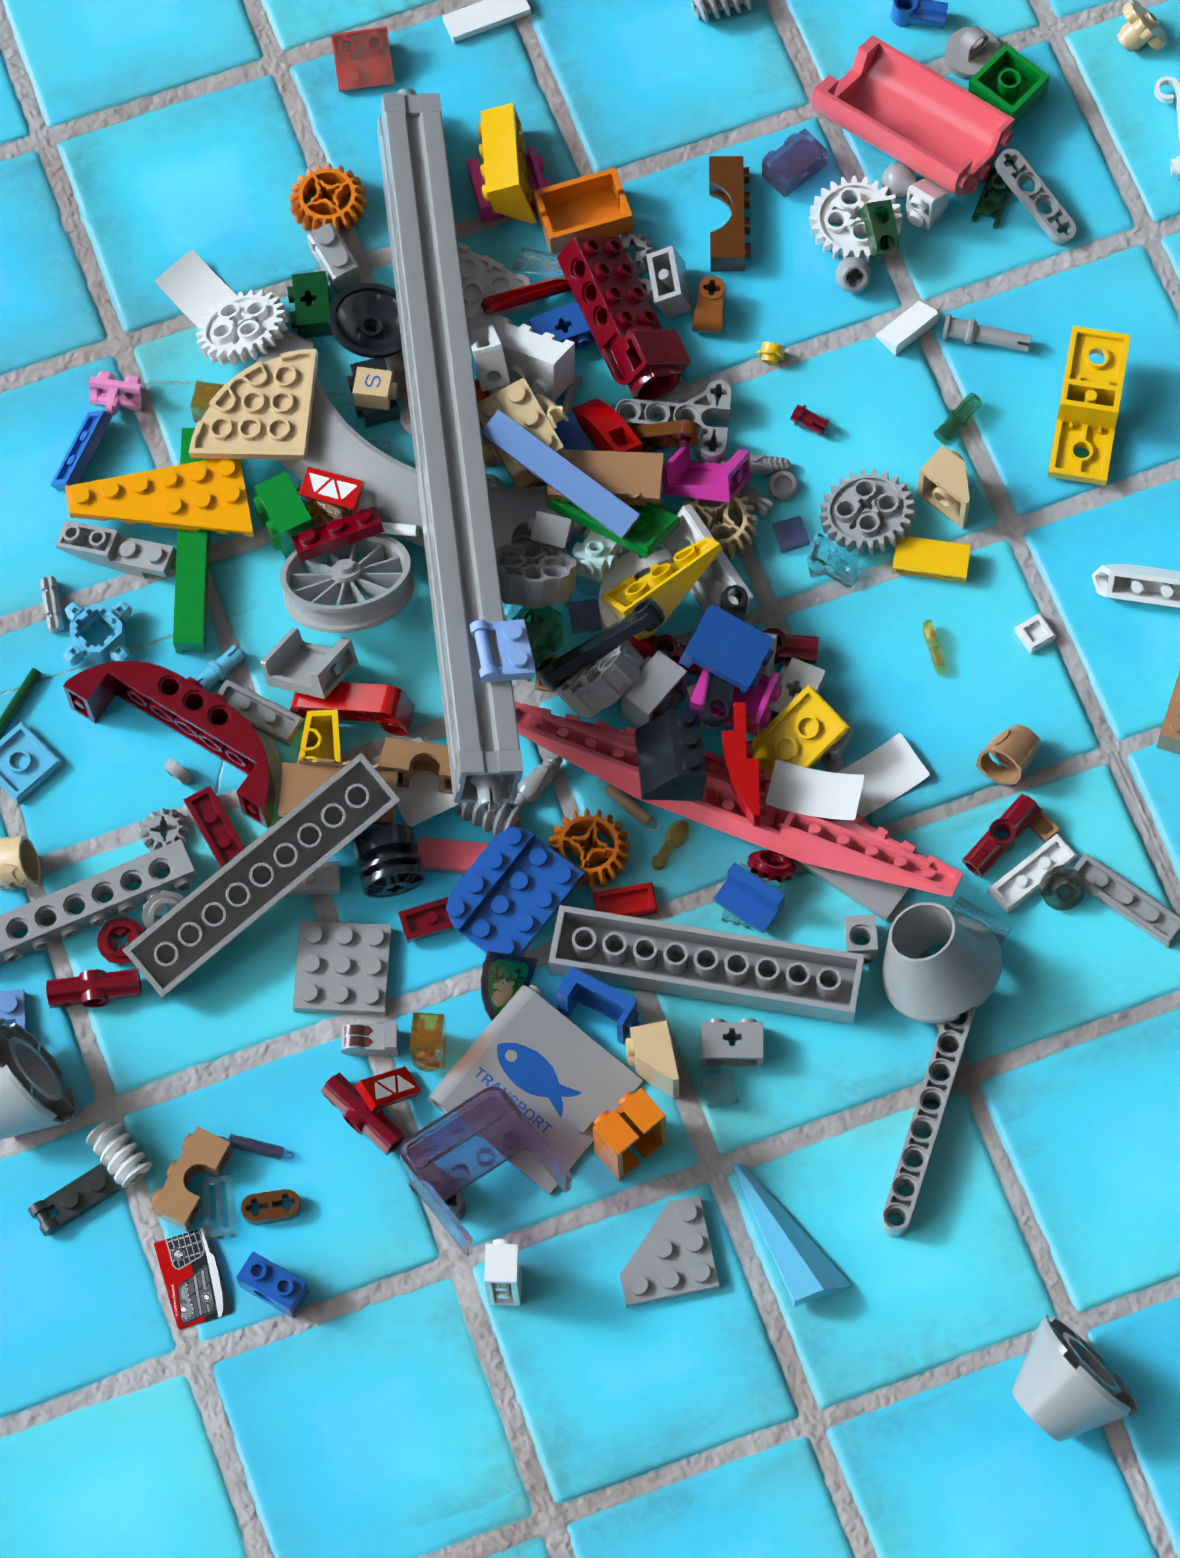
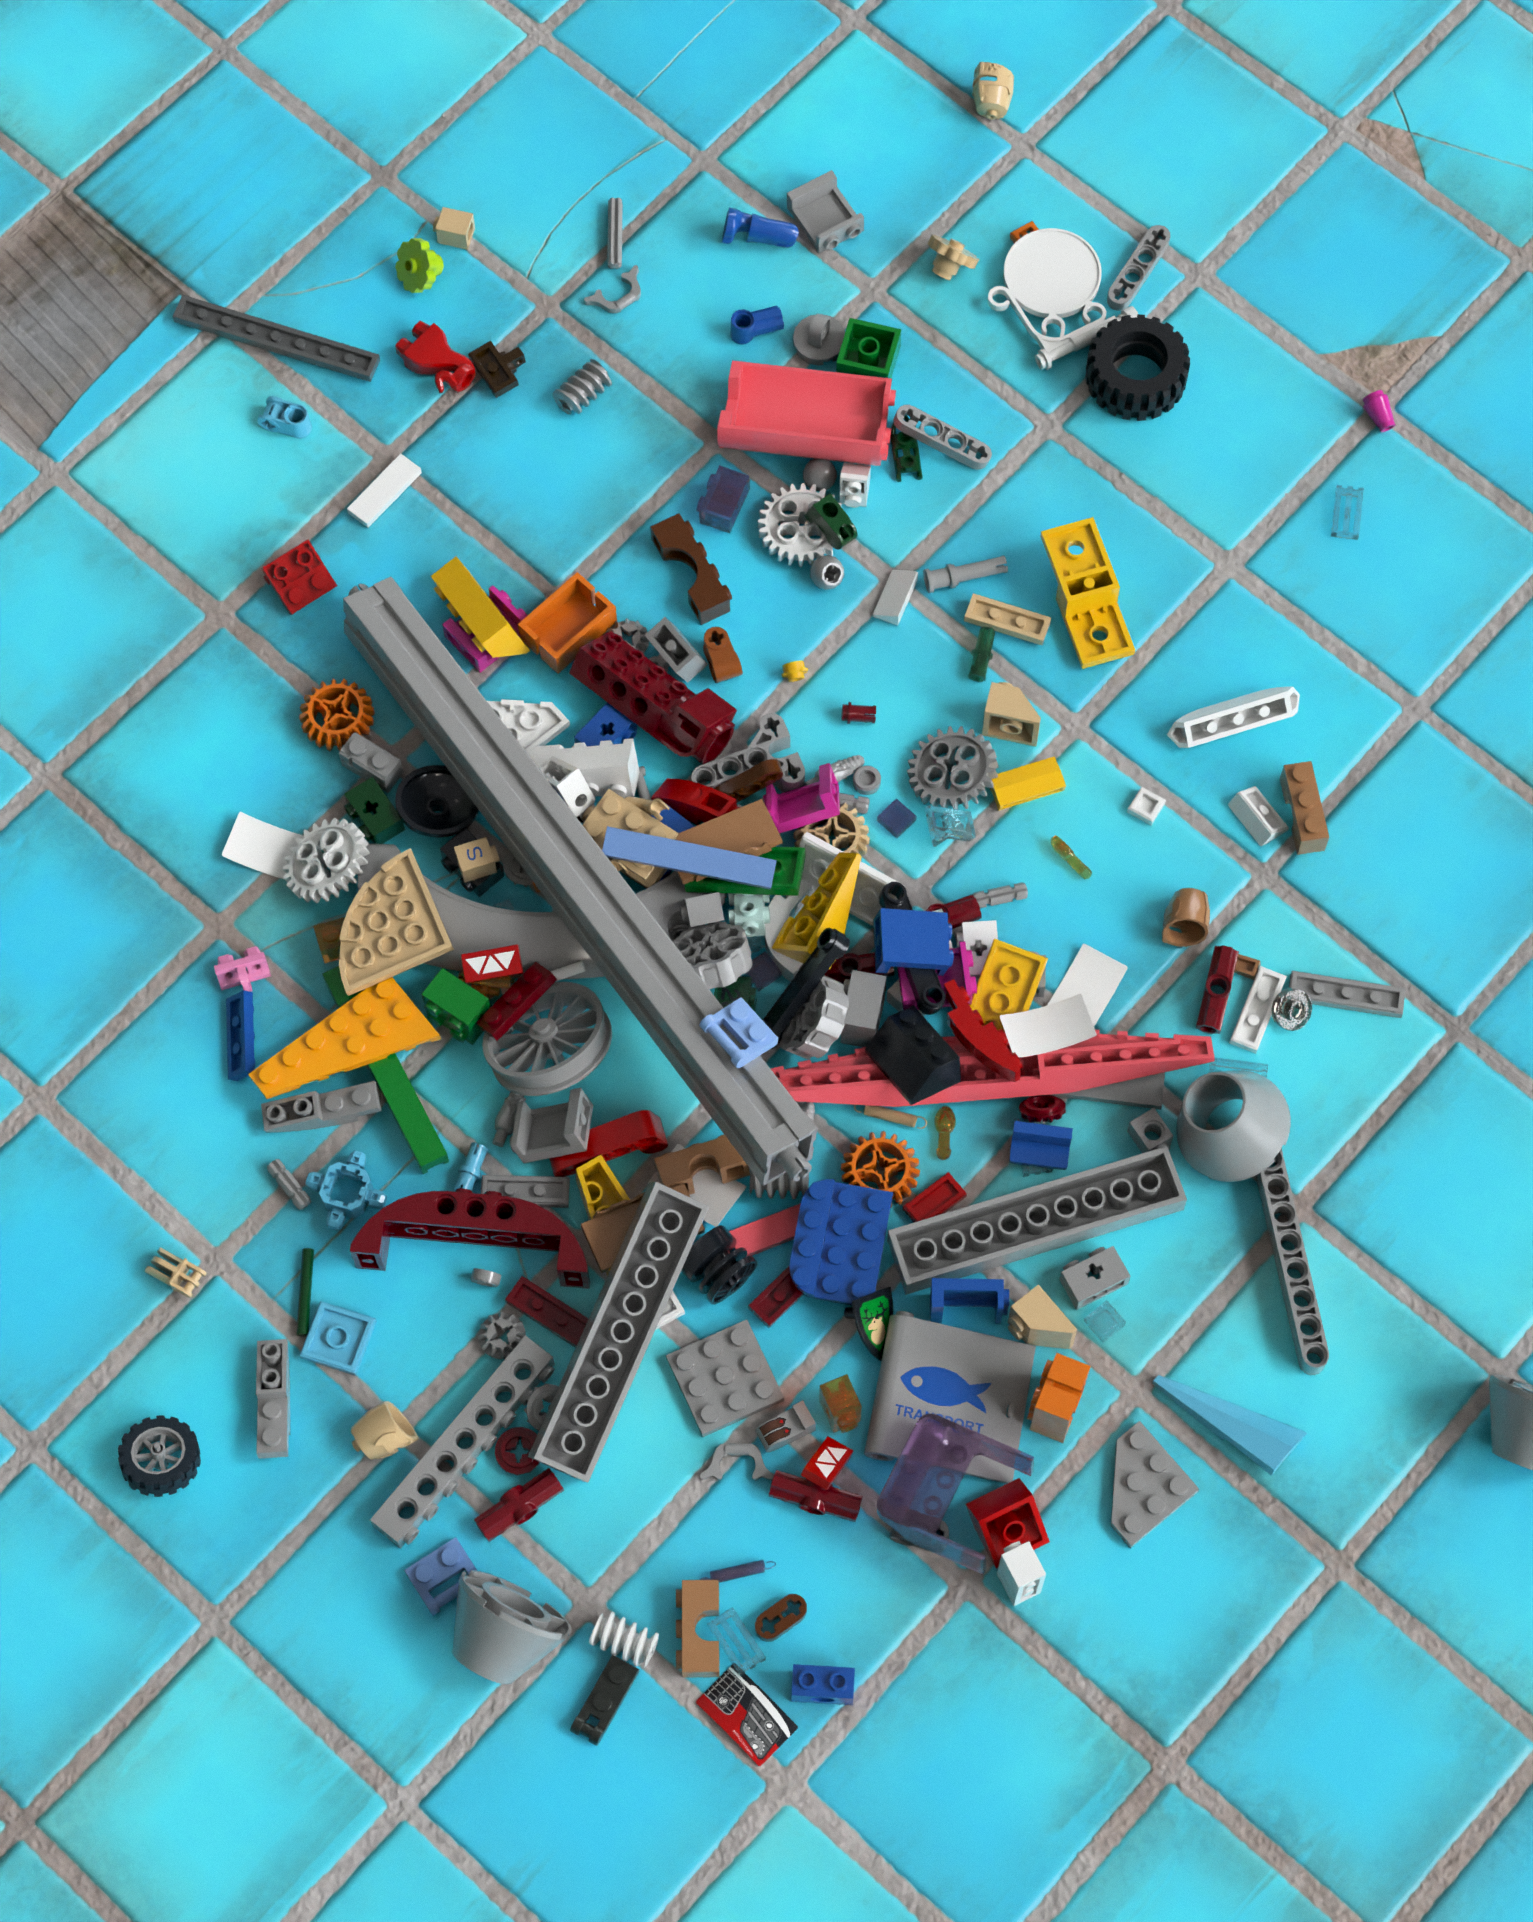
camera: 30 degrees left, 0 degrees up
(274, 636) = (505, 1118): none -> light grey piece
(307, 1032) = (737, 1449): none -> light grey helmet
(524, 295) = (559, 717): red axle -> none
(526, 1220) = (1007, 1517): none -> red slope
(538, 263) = (554, 684): clear light blue tile -> none
(846, 651) = (1001, 895): none -> light grey axle
(1001, 396) = (1007, 619): none -> tan plate
(1138, 692) = (1257, 815): none -> white slope

